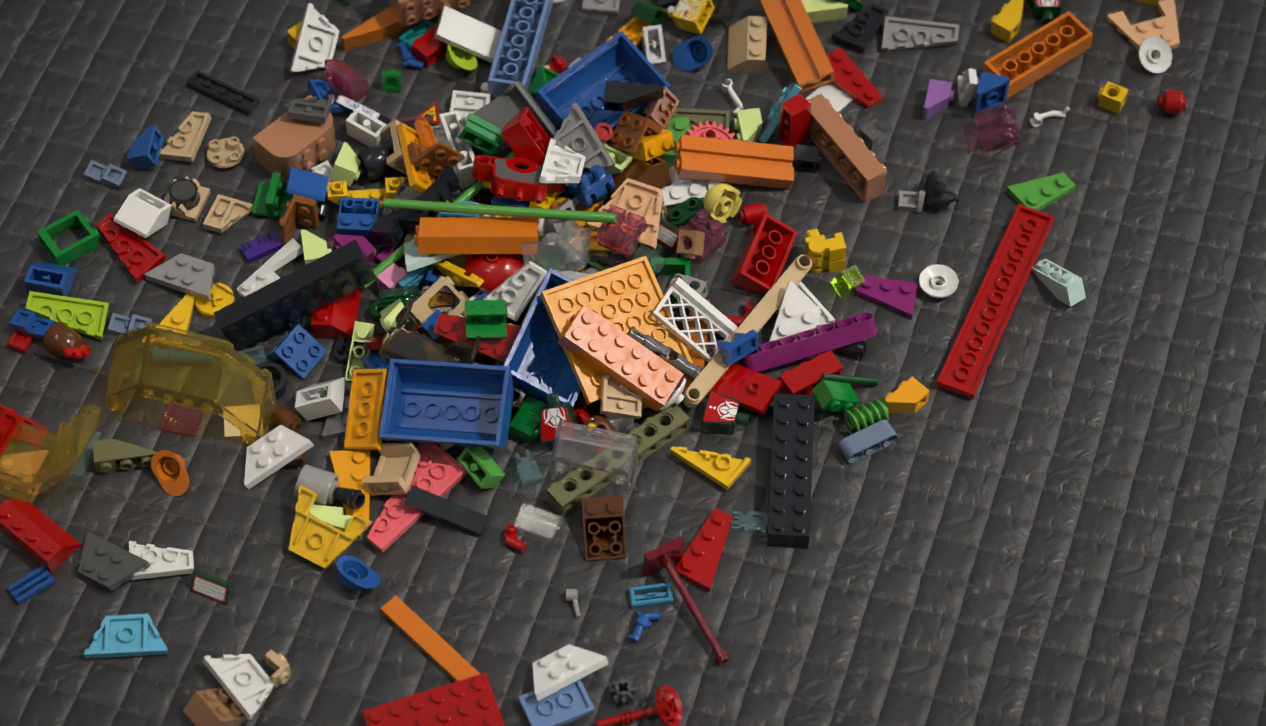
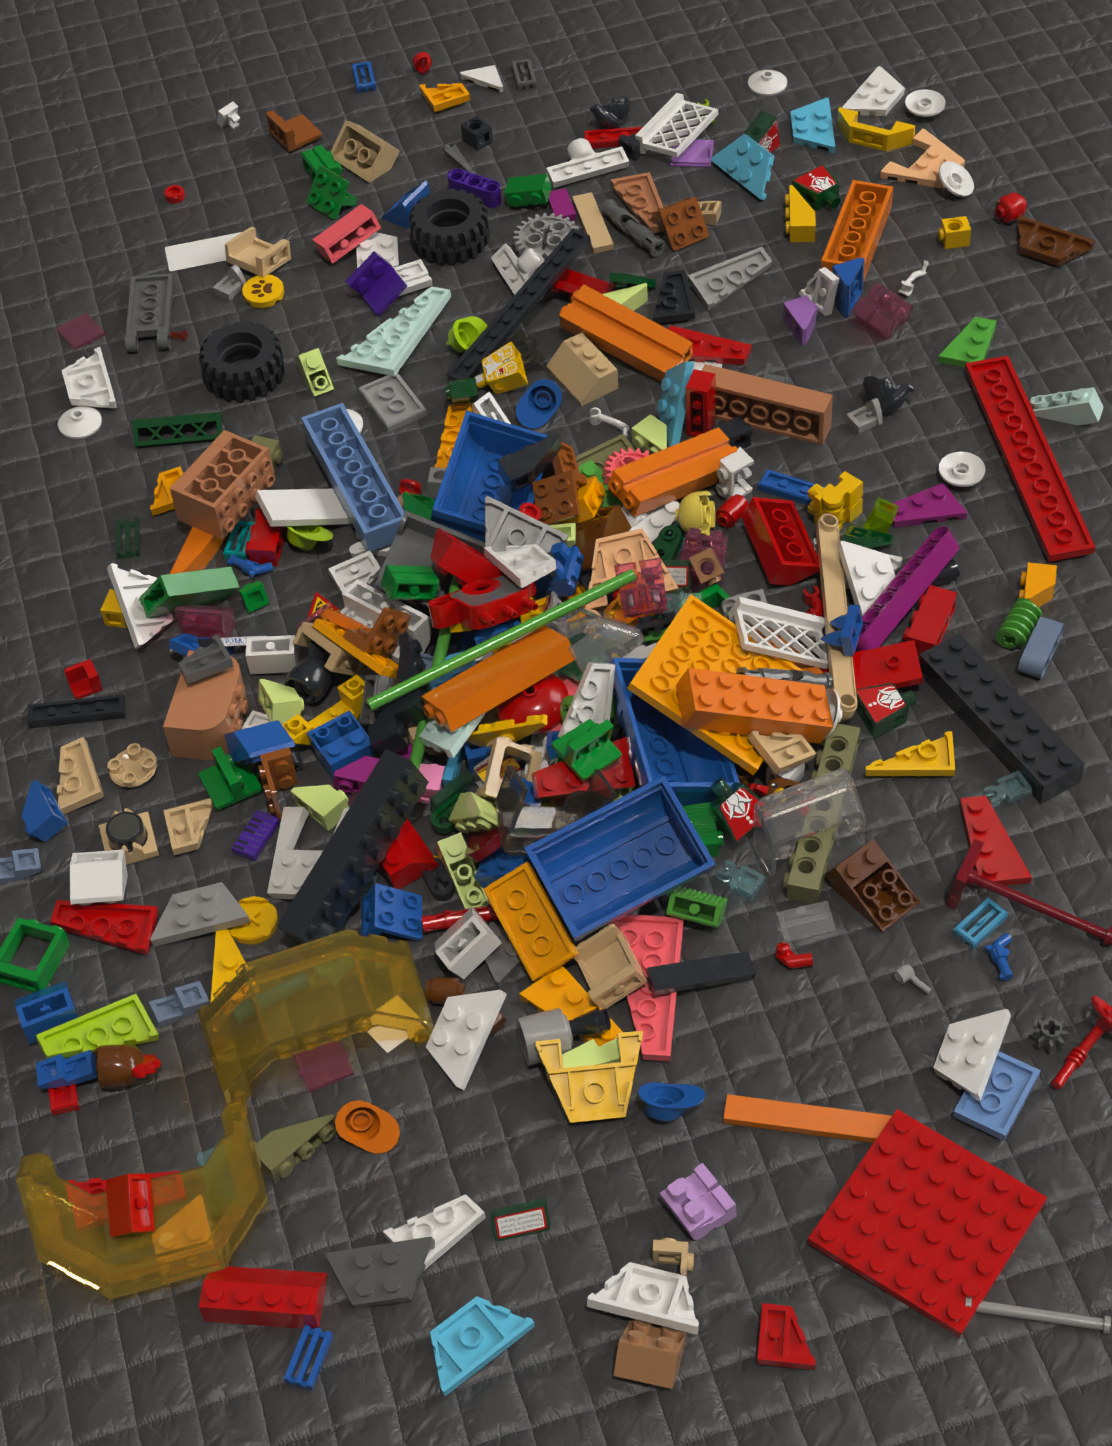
camera: 30 degrees left, 5 degrees down
(243, 73) = (83, 679): none -> red panel
(318, 647) = (699, 1202): none -> lavender hips
(326, 375) = (447, 919): none -> red pin
(350, 51) = (188, 588): none -> green slope
(773, 189) = (731, 472): none -> white window
(810, 218) = (786, 487): none -> blue tile
(822, 288) = (867, 538): none -> dark green wing
(835, 396) = (976, 623): green brick -> none
(851, 379) = (971, 601): dark green bar -> none
(1176, 147) = (1049, 242): none -> reddish brown wing

